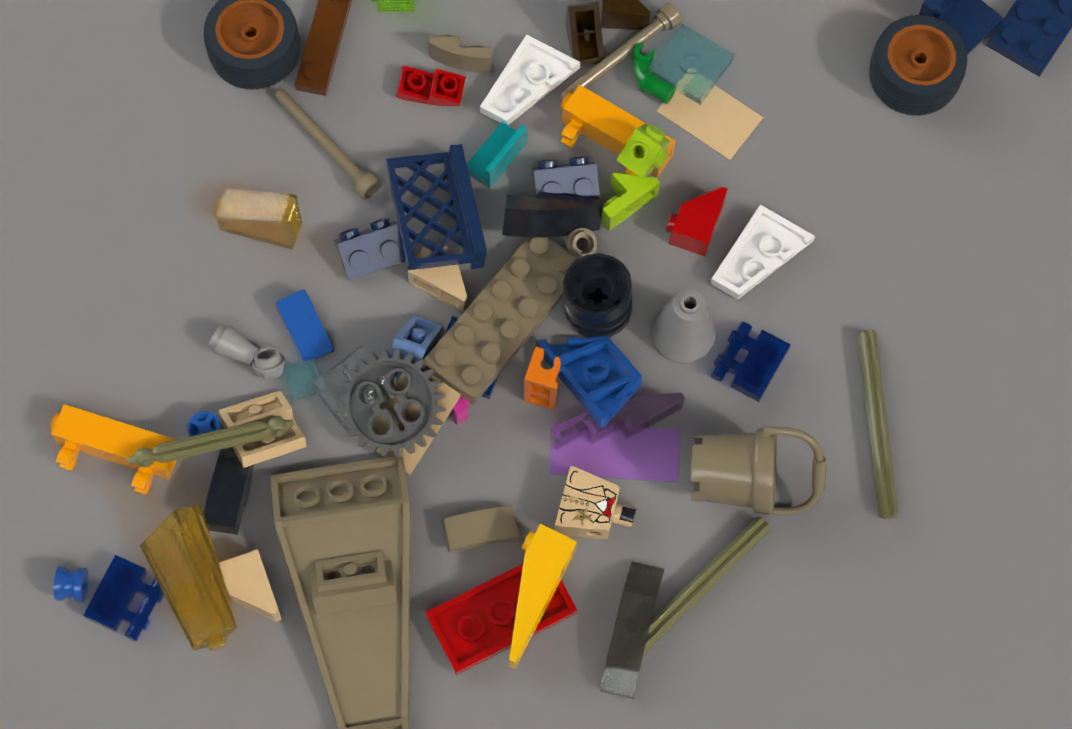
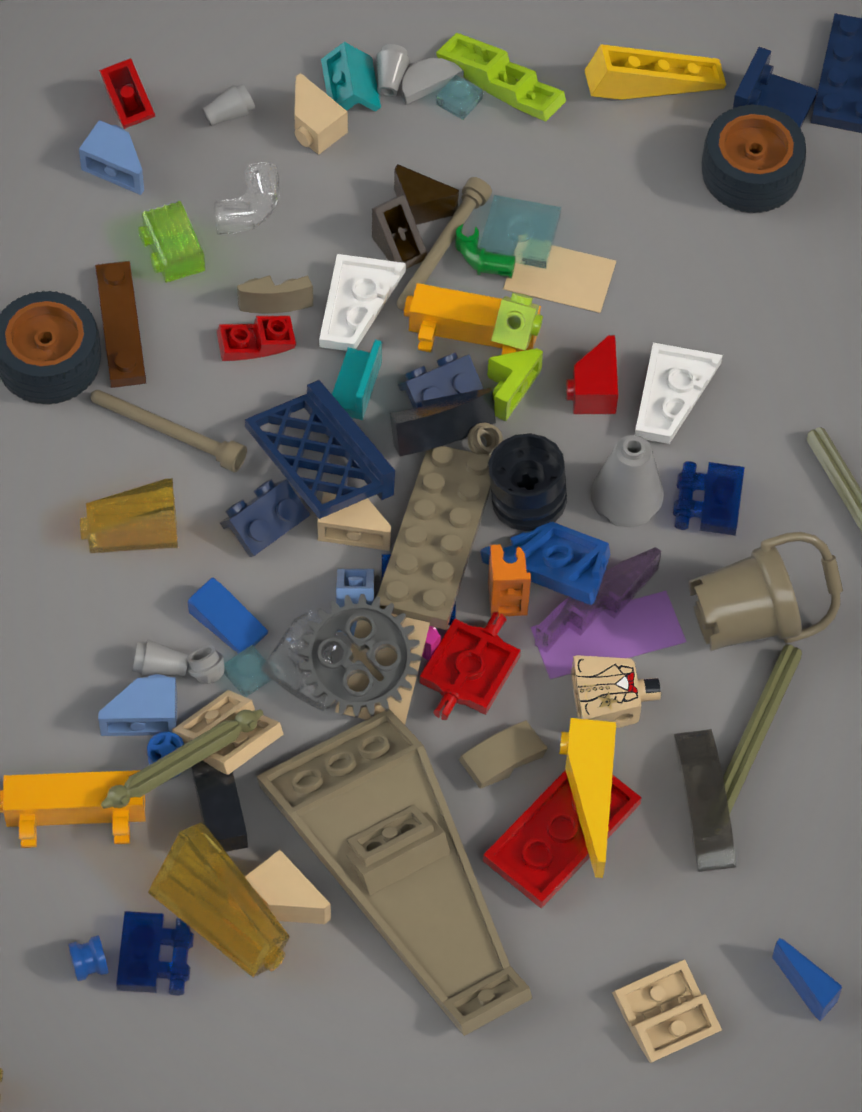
camera: 20 degrees left, 10 degrees down
(203, 383) = (141, 708): none -> medium blue slope
(485, 441) = (470, 666): none -> red plate

